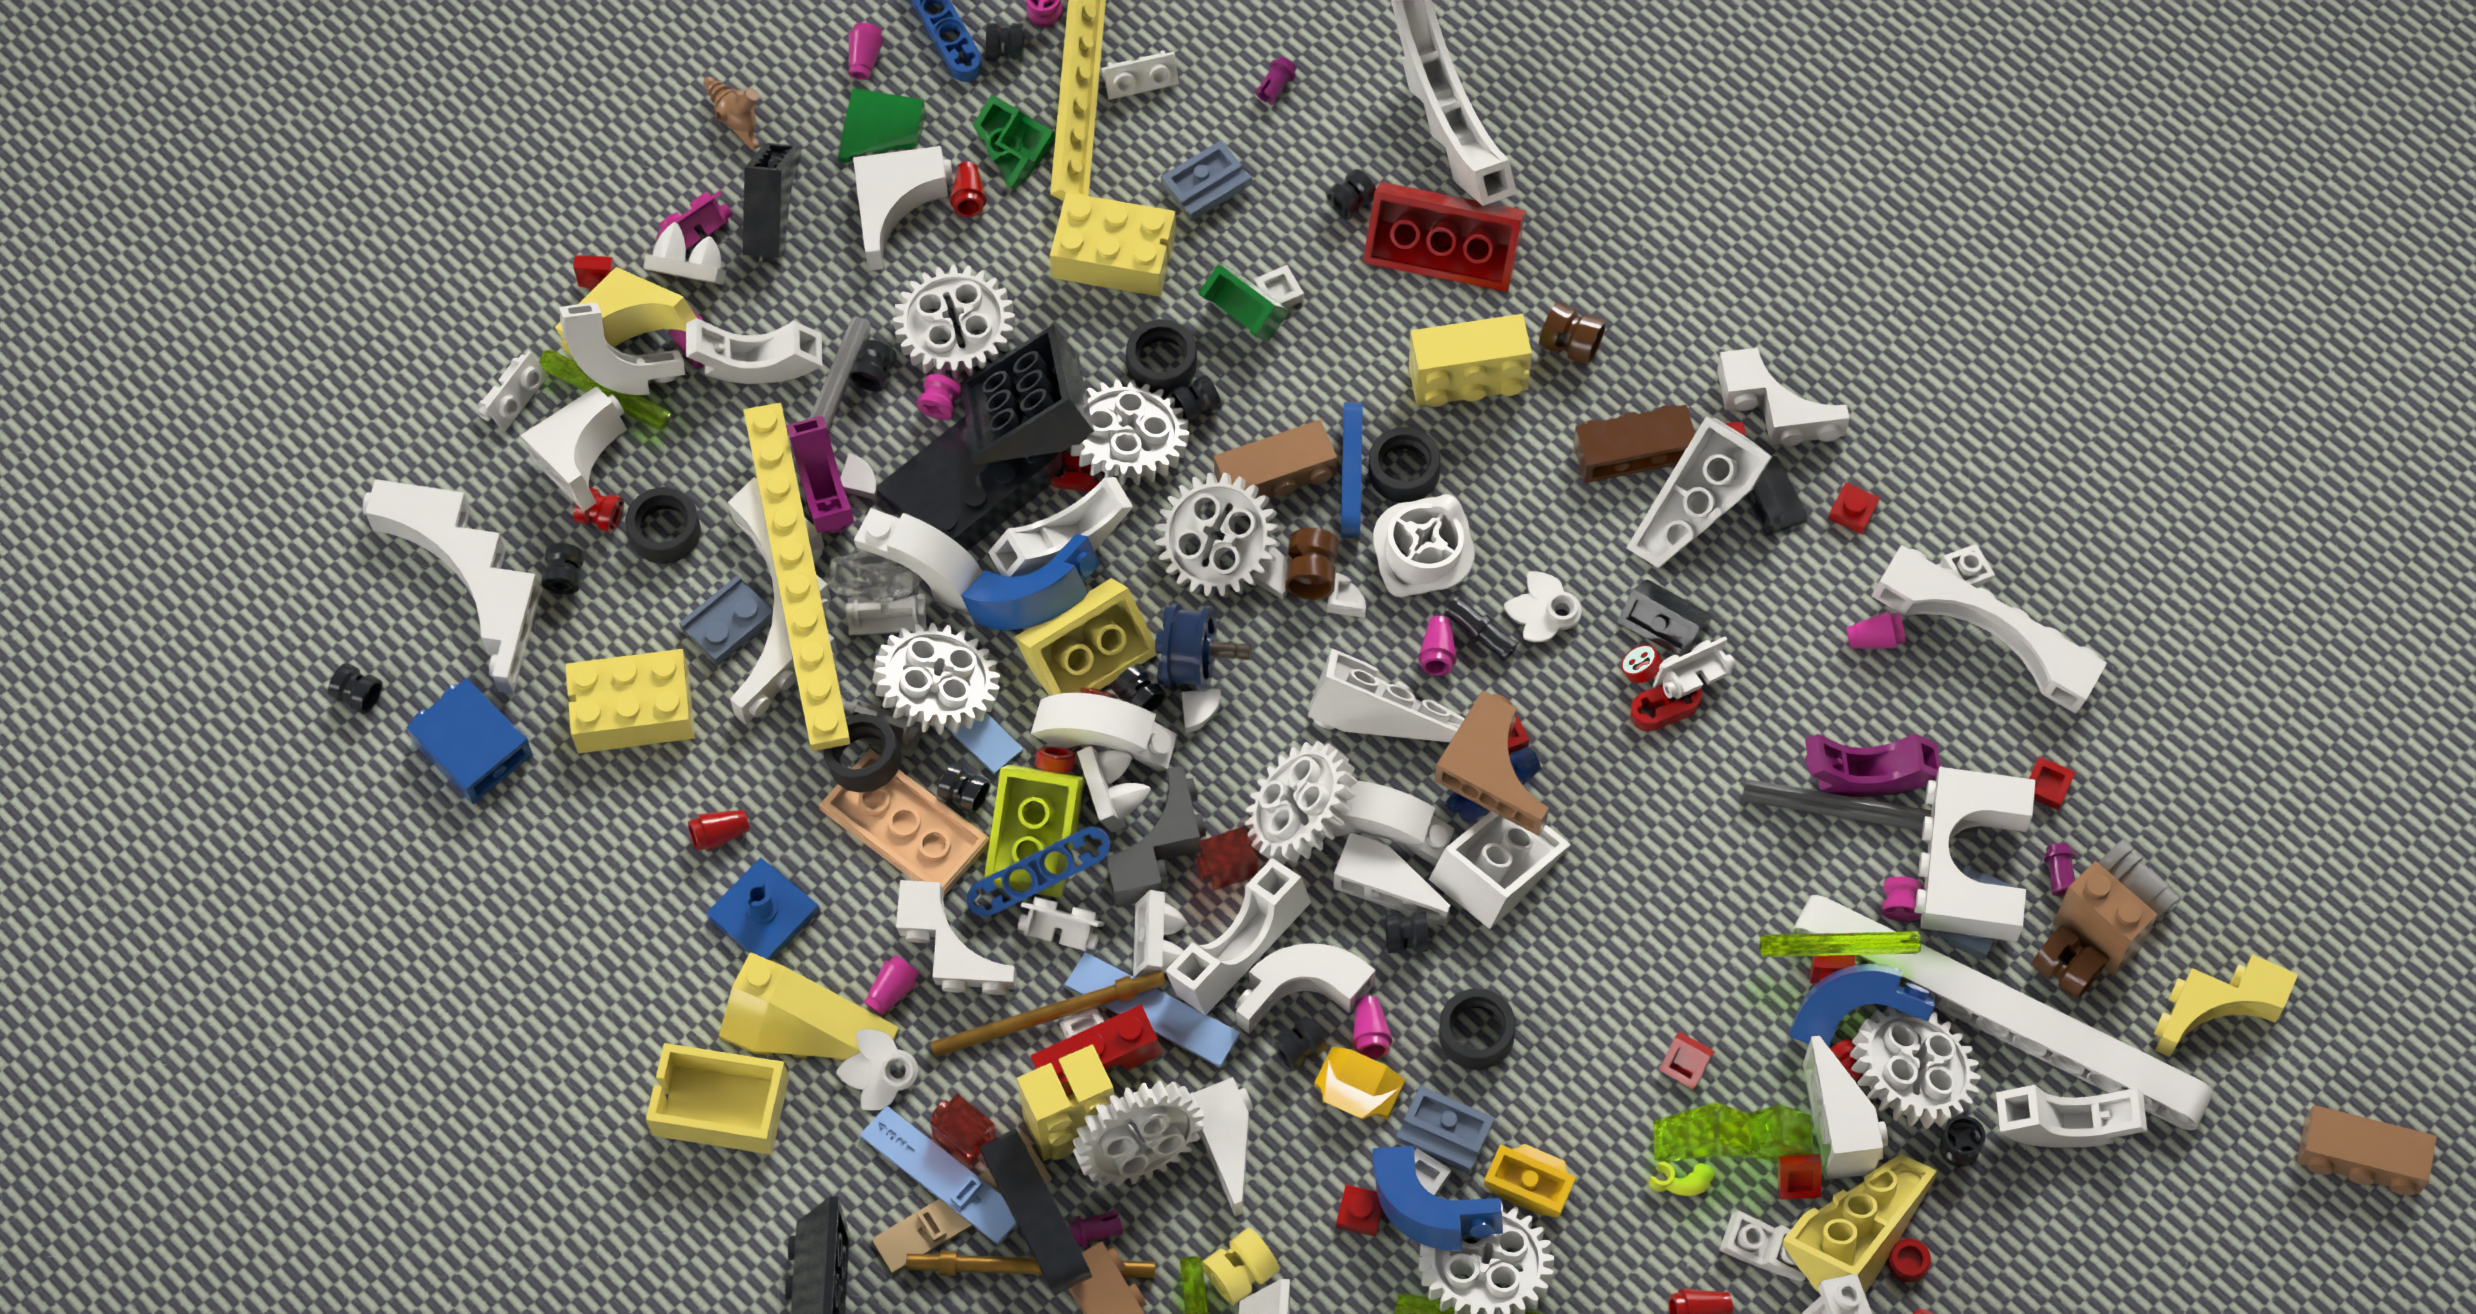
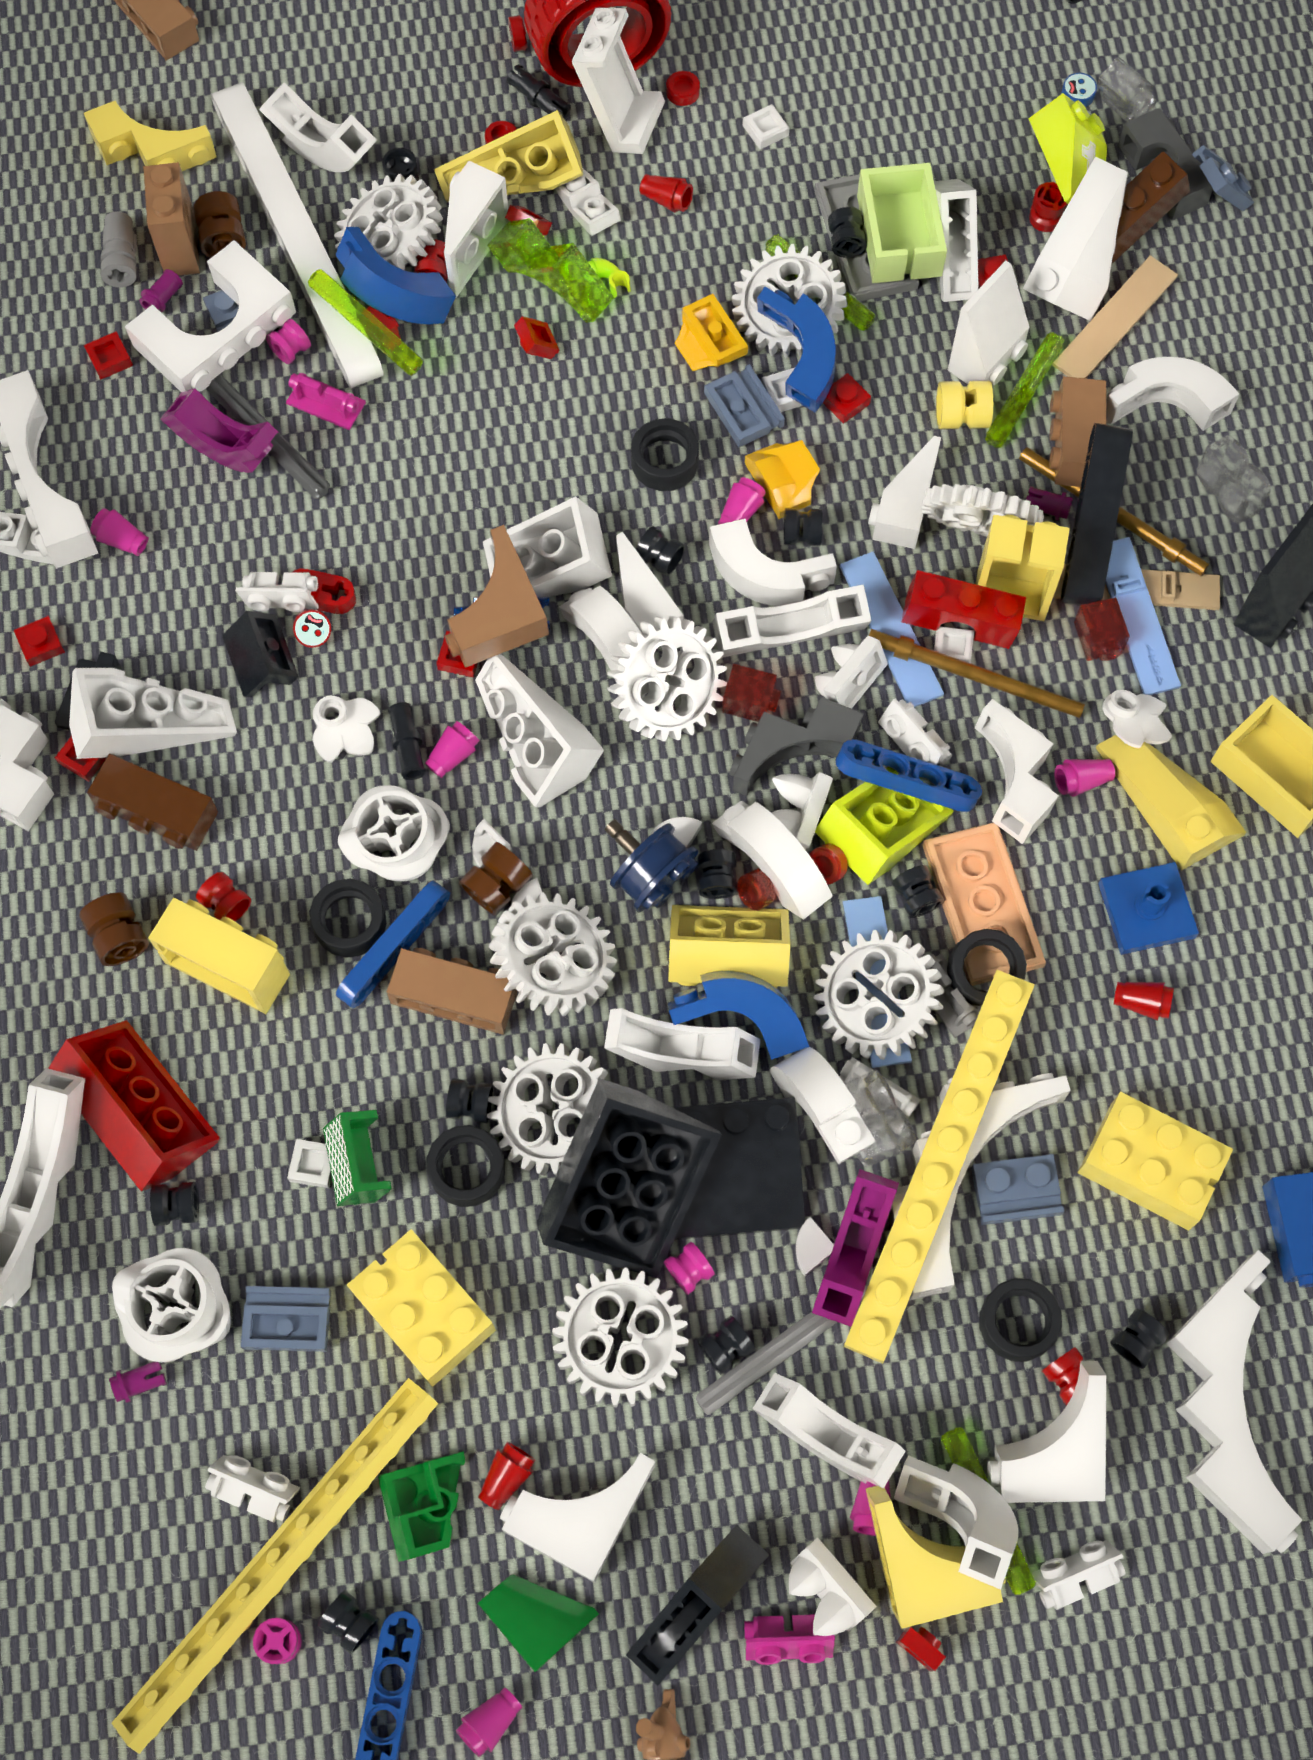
camera: 145 degrees left, 5 degrees up
(1283, 142) = (138, 1284): none -> white piece
(1512, 412) = (222, 897): none -> red wheel
(1820, 872) = (324, 401): none -> dark pink hinge

